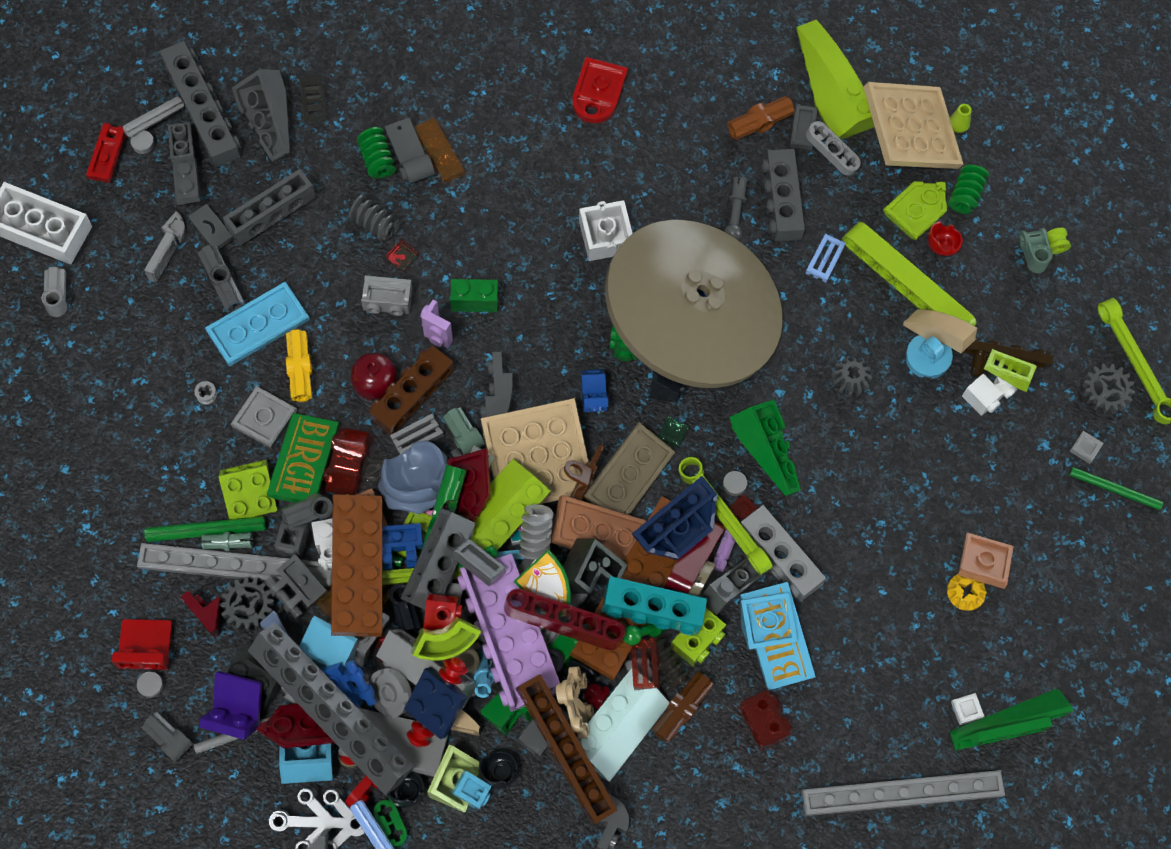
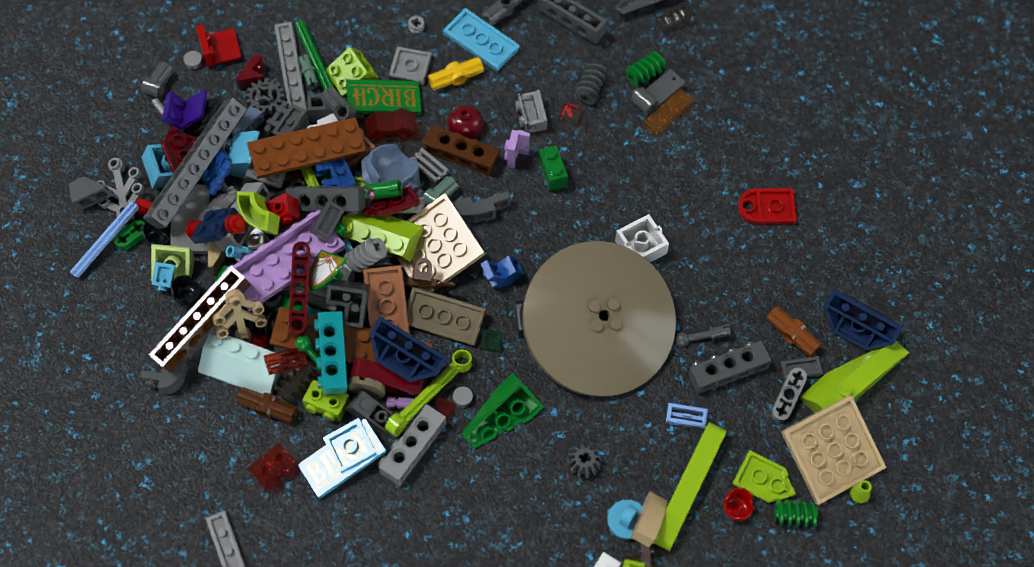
camera: 75 degrees right, 5 degrees down
(774, 47) = (860, 322): none -> dark blue wedge

